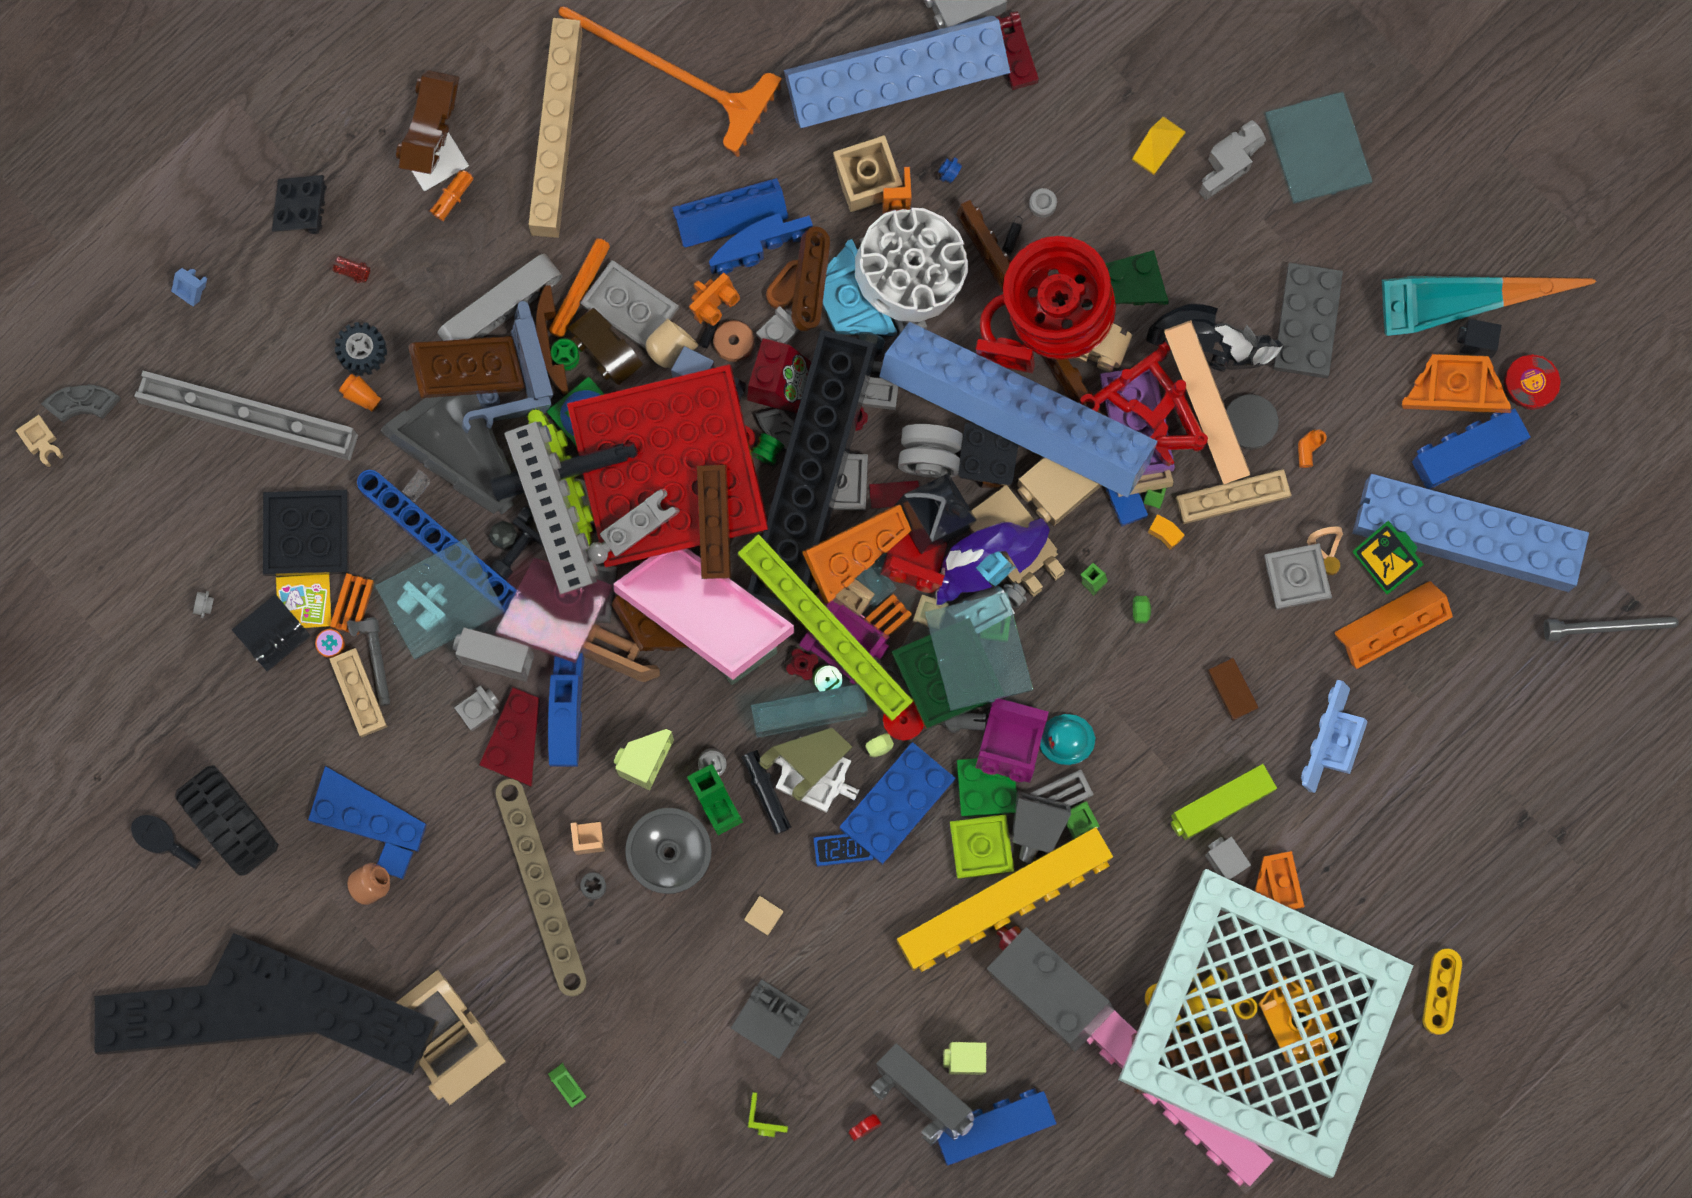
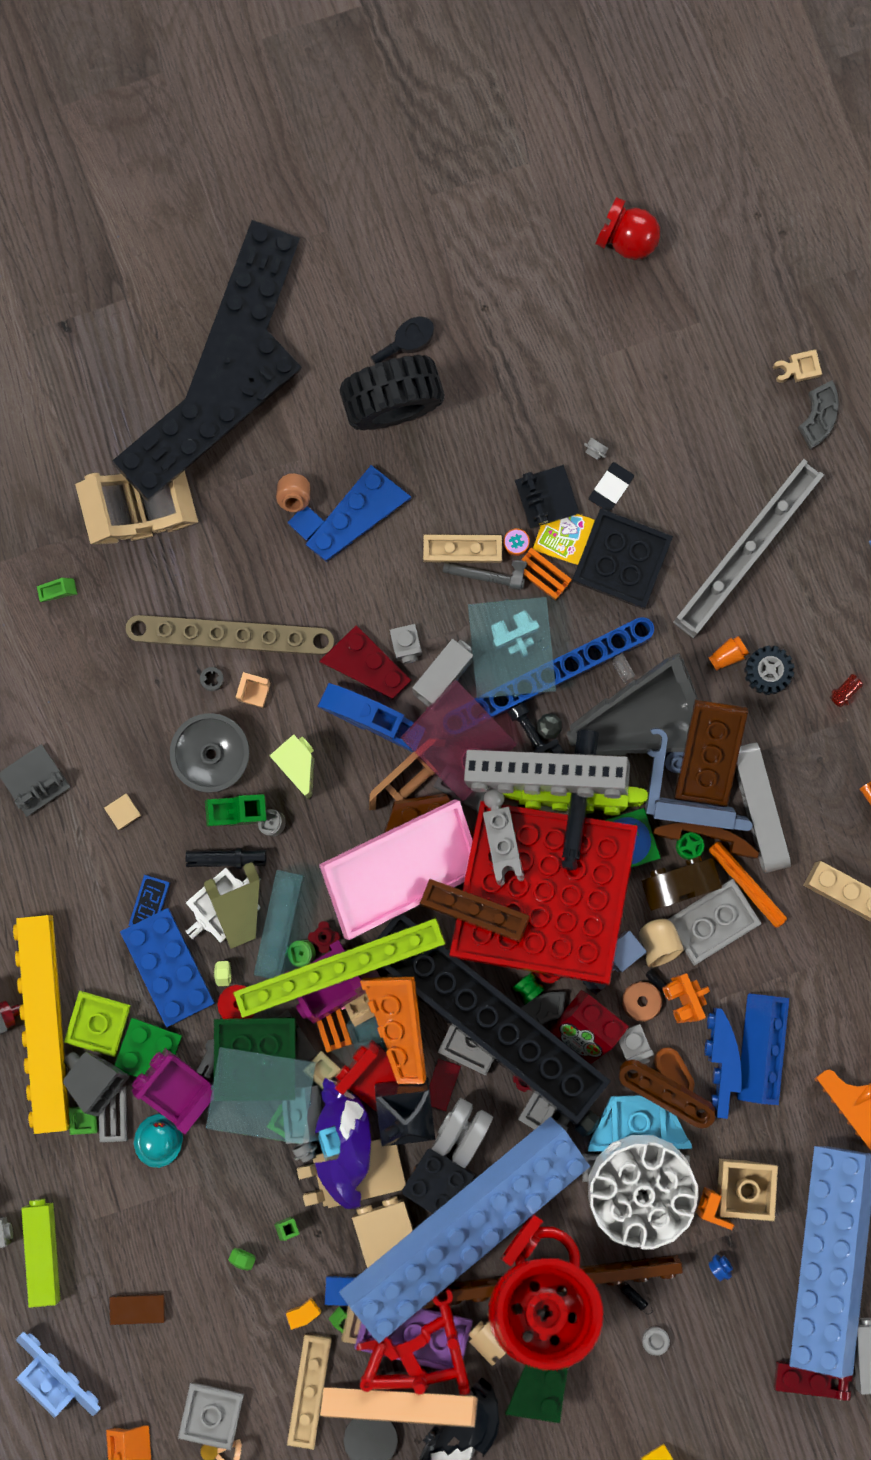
camera: 115 degrees right, 5 degrees up
(236, 575) = (611, 487): none -> sticker

